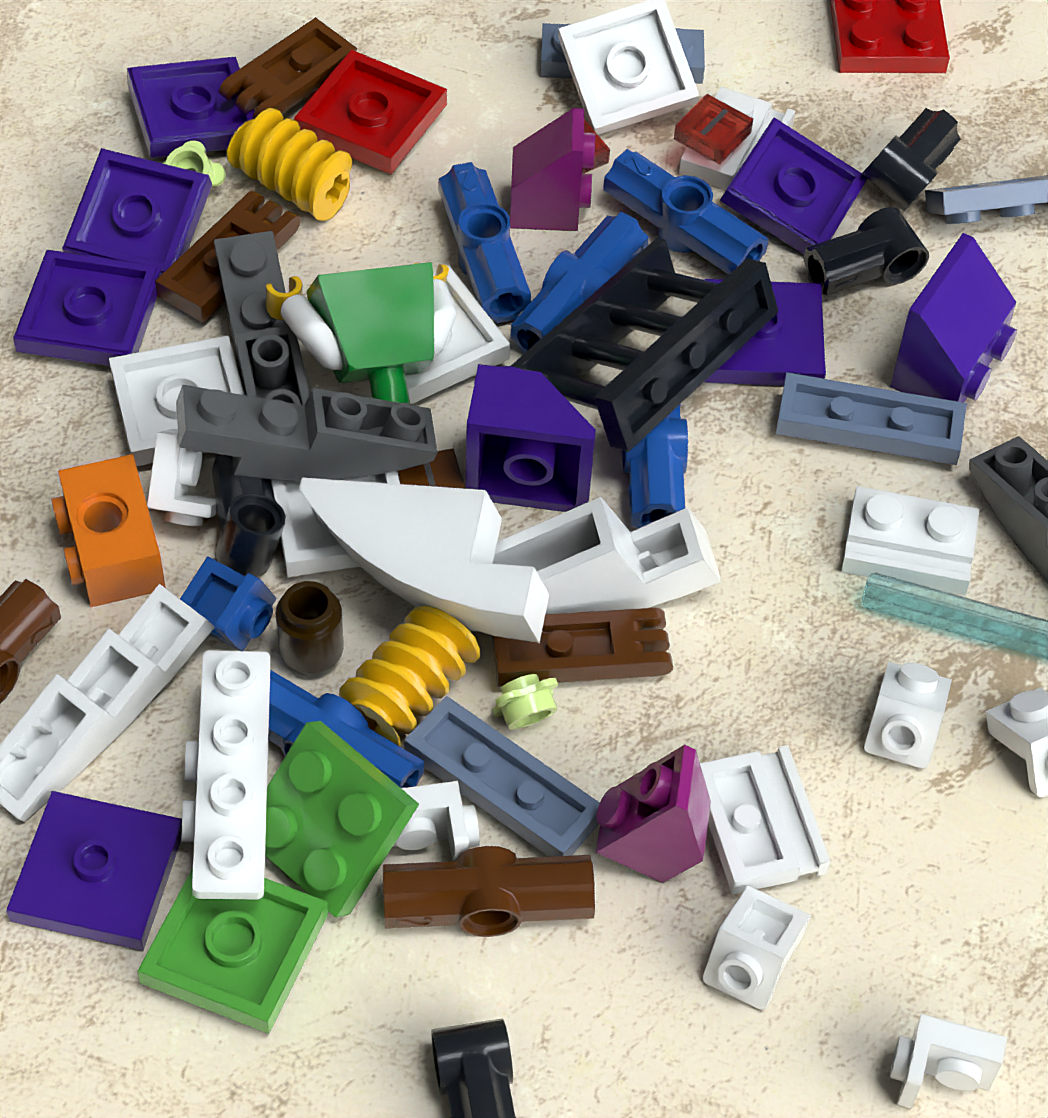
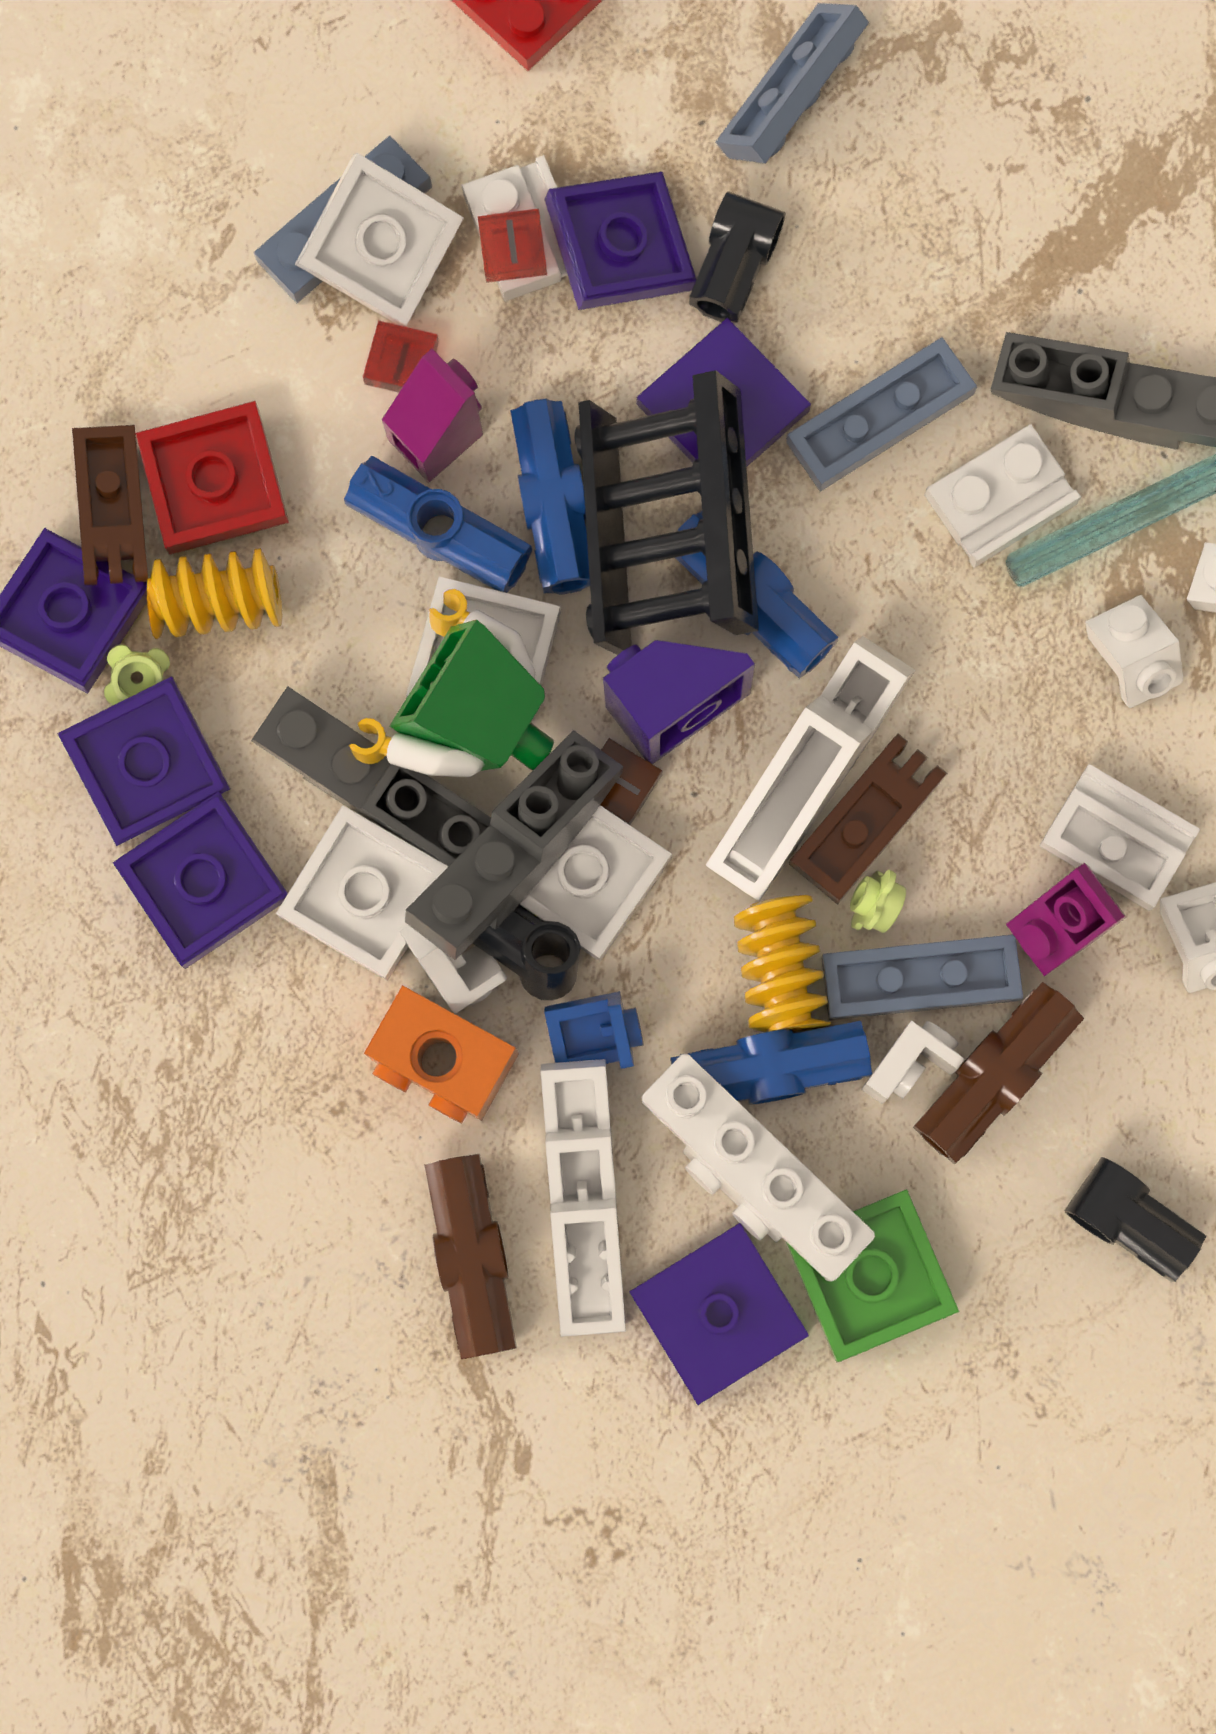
camera: 35 degrees left, 25 degrees up
(194, 278) = (243, 702): reddish brown hinge -> none
(309, 627) = (682, 977): dark brown brick -> none
(332, 817) = (854, 1128): bright green plate -> none
(433, 551) = (716, 866): white slope -> none
(683, 212) = (524, 349): blue piece -> none
(910, 160) = (685, 135): black piece -> none
(956, 328) = (881, 279): dark purple slope -> none

